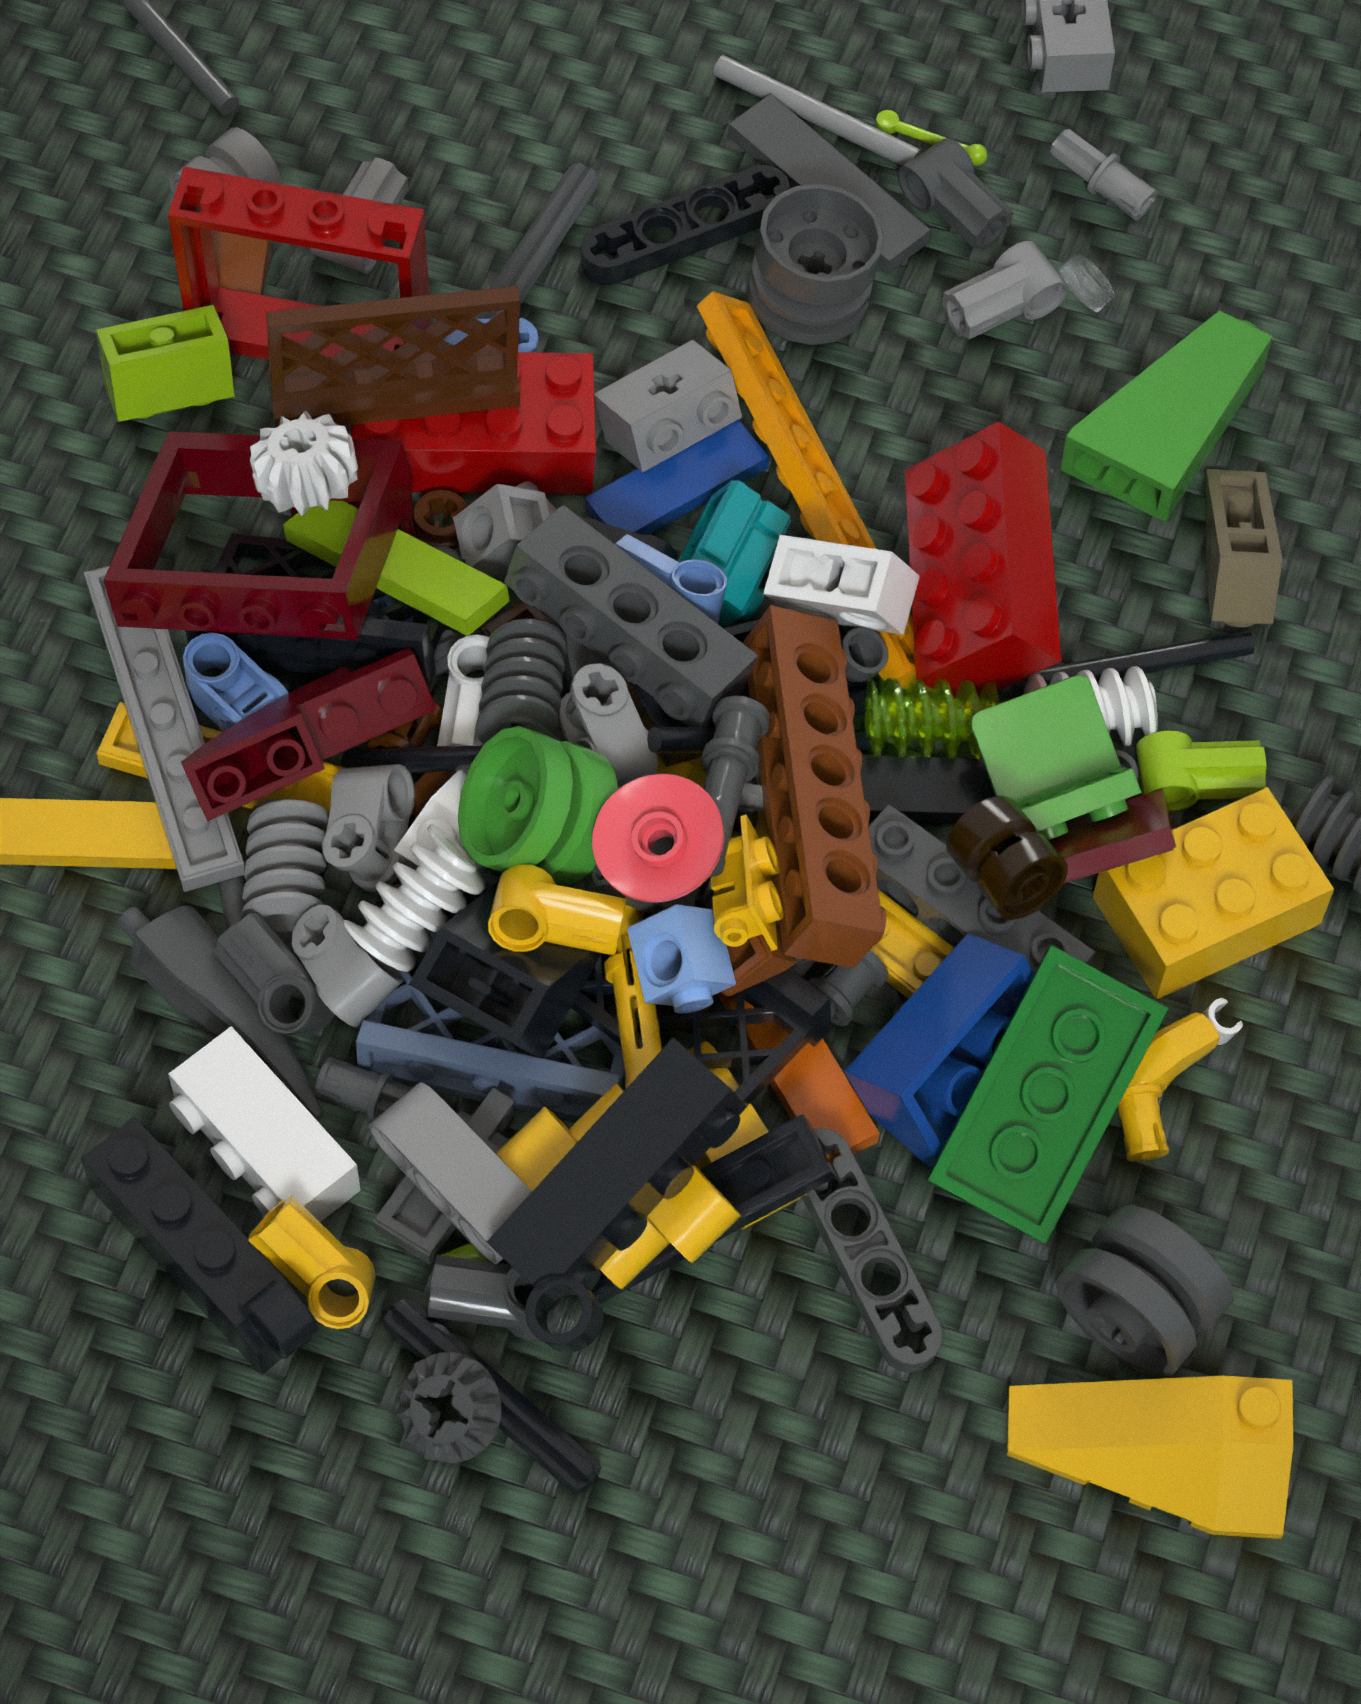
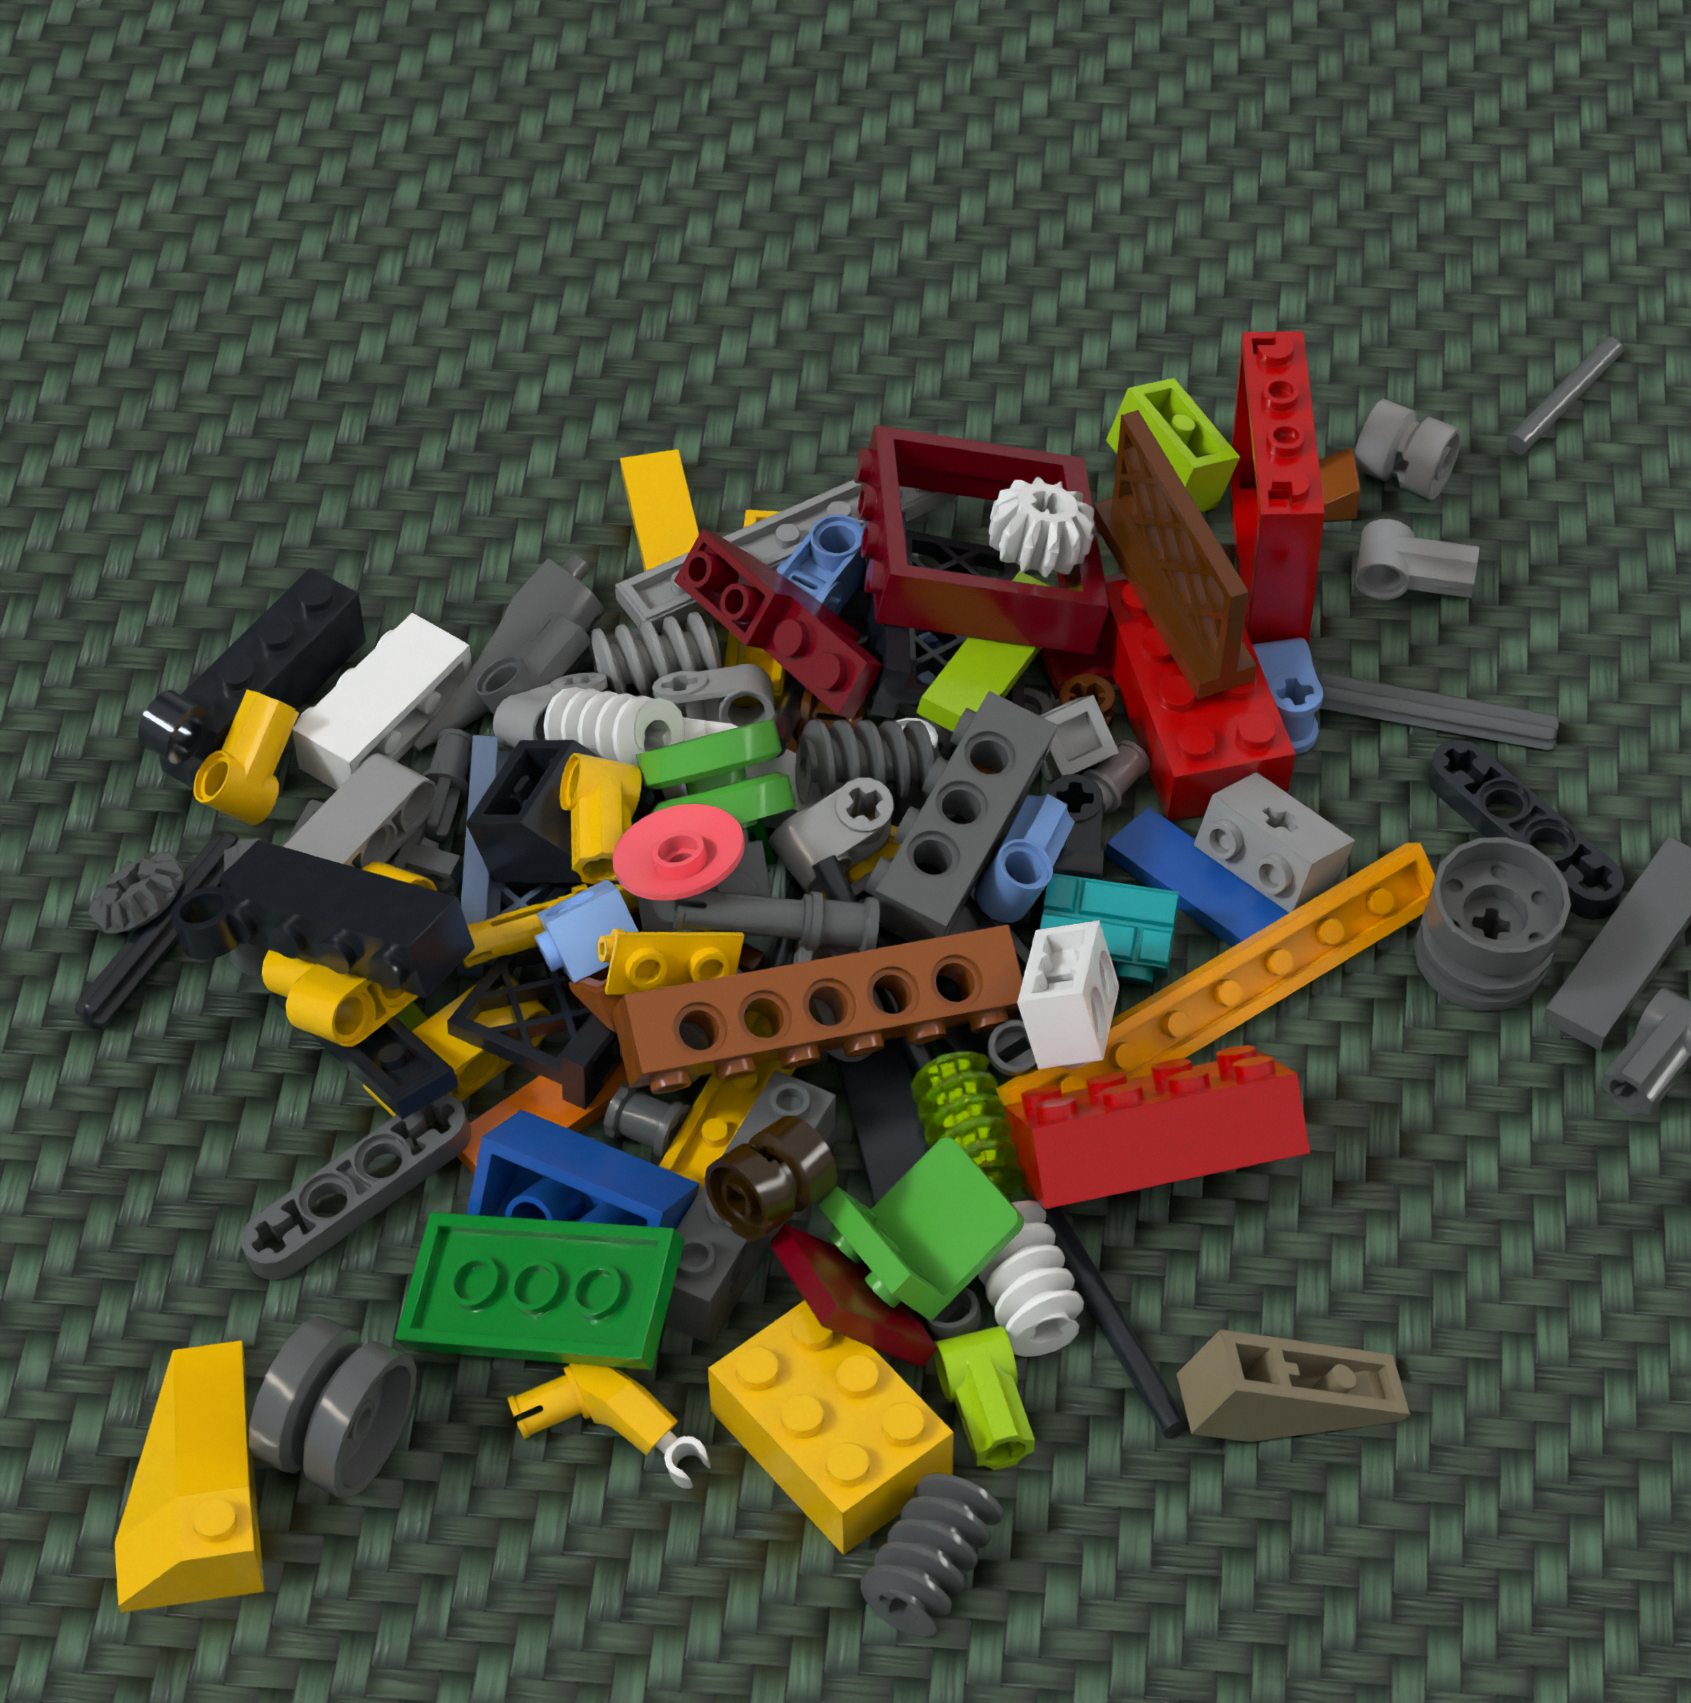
camera: 80 degrees right, 10 degrees down
(1017, 285) = (1559, 1131): light grey piece -> none
(1087, 282) = (1588, 1190): clear tile -> none
(1168, 419) = (1443, 1301): bright green slope -> none

